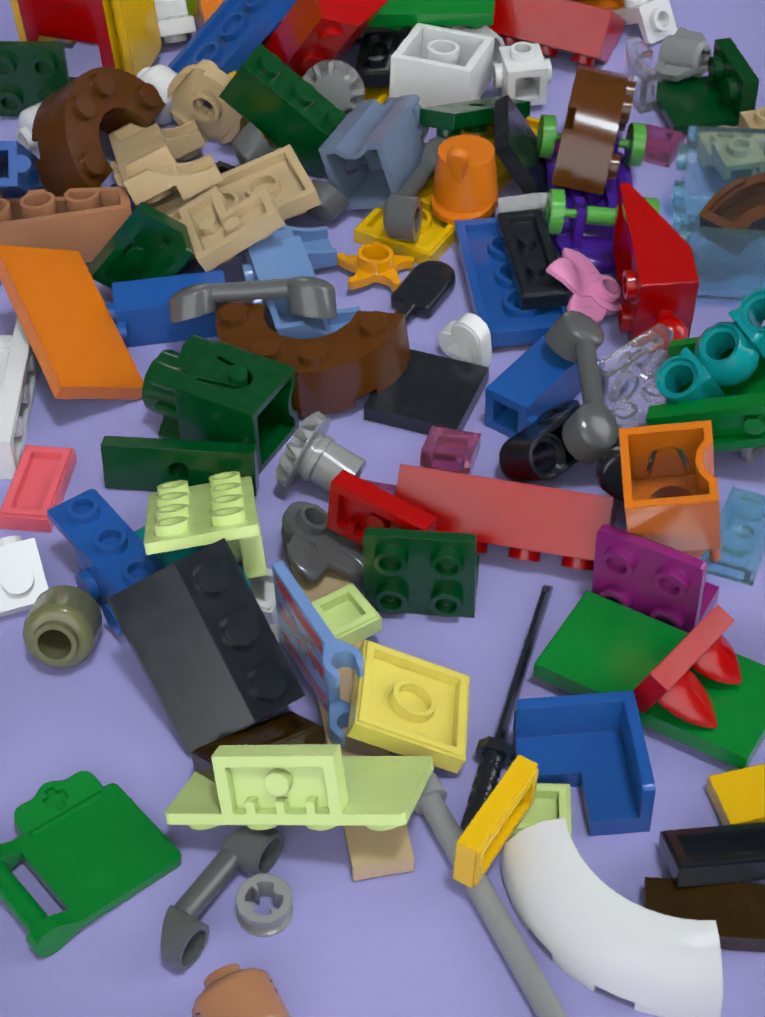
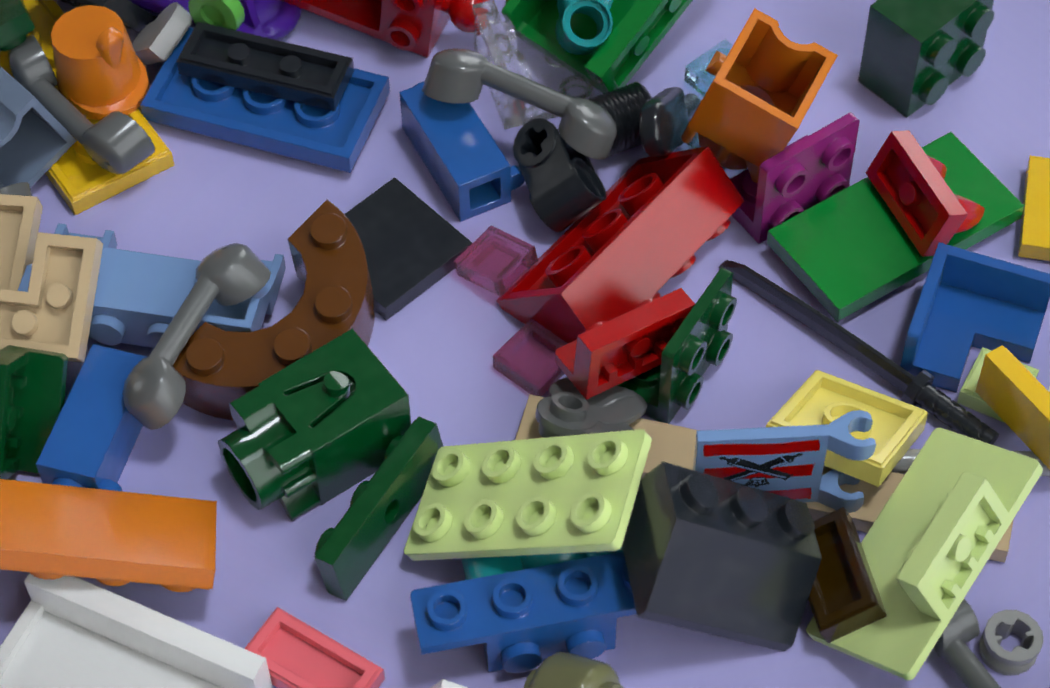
camera: 65 degrees left, 10 degrees up
(316, 456) = (455, 375): light grey gear -> none
(348, 614) = (681, 430): yellowish green tile -> none
(374, 264) = (149, 209): light orange animal -> none
(424, 290) = (223, 189): black piece -> none
(467, 340) = (345, 178): white tile -> none
(592, 292) = (343, 37): bright pink plate -> none

